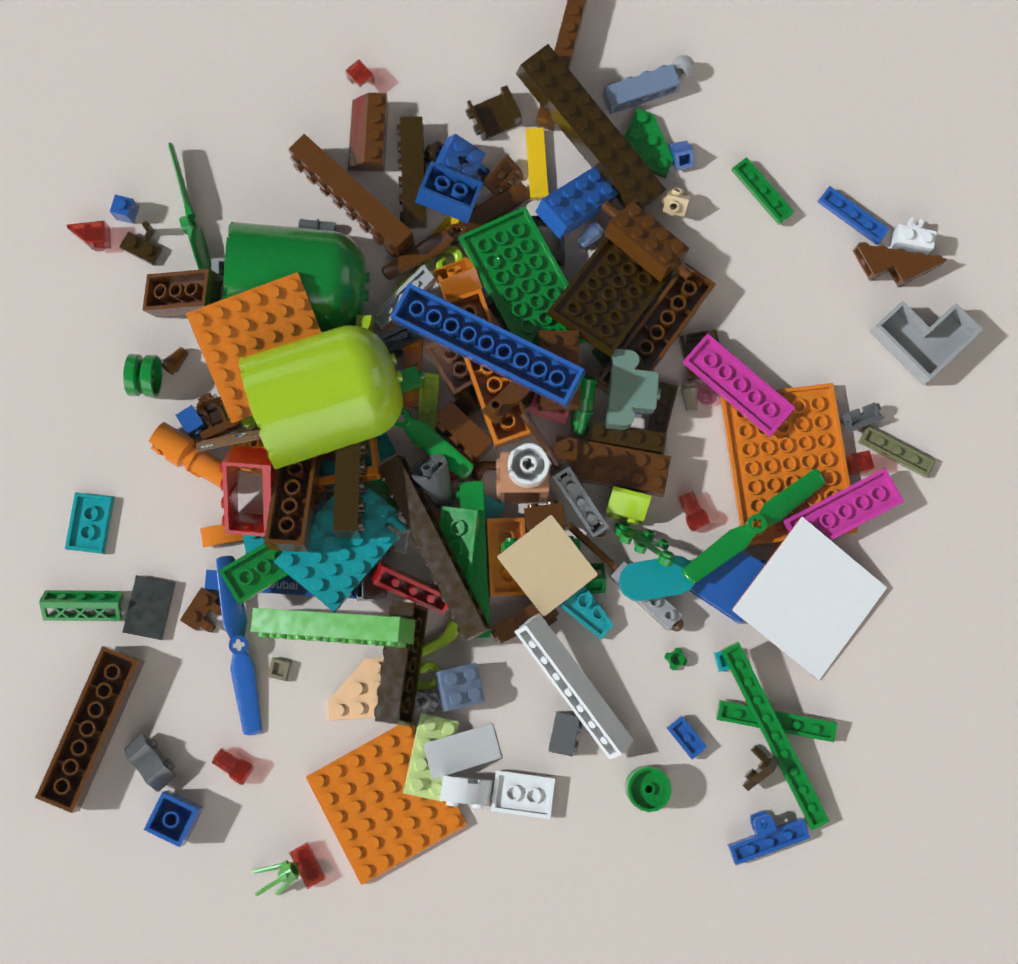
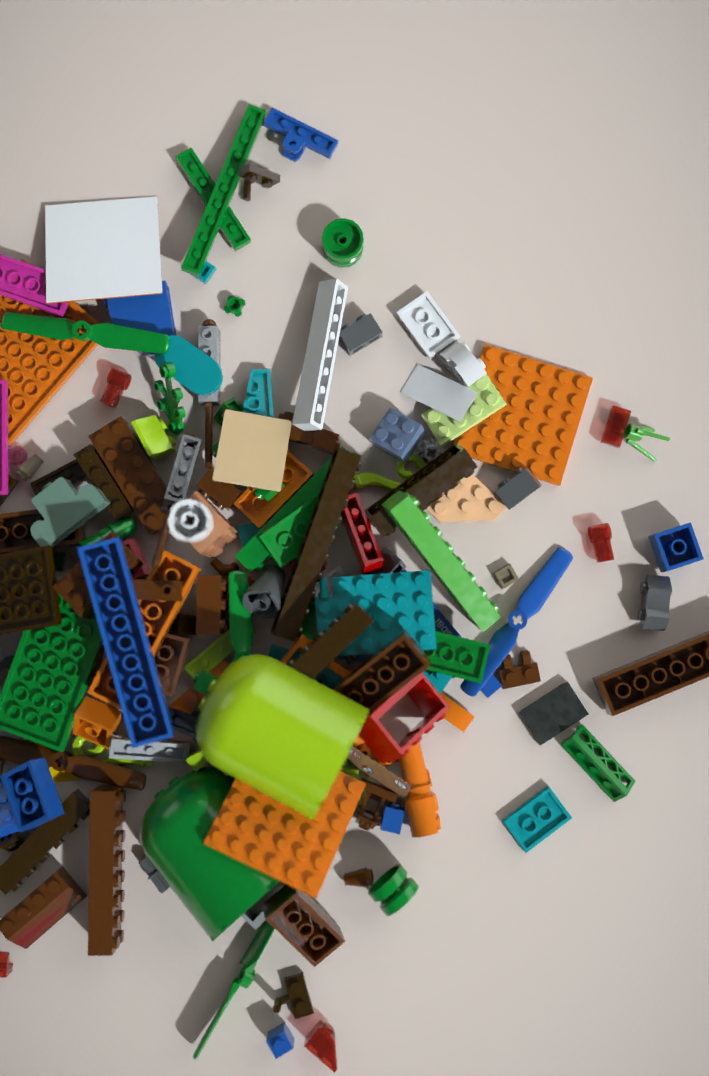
camera: 130 degrees left, 5 degrees up
(333, 740) = (517, 488): none -> dark grey brick
(686, 737) = (282, 249): blue plate -> none

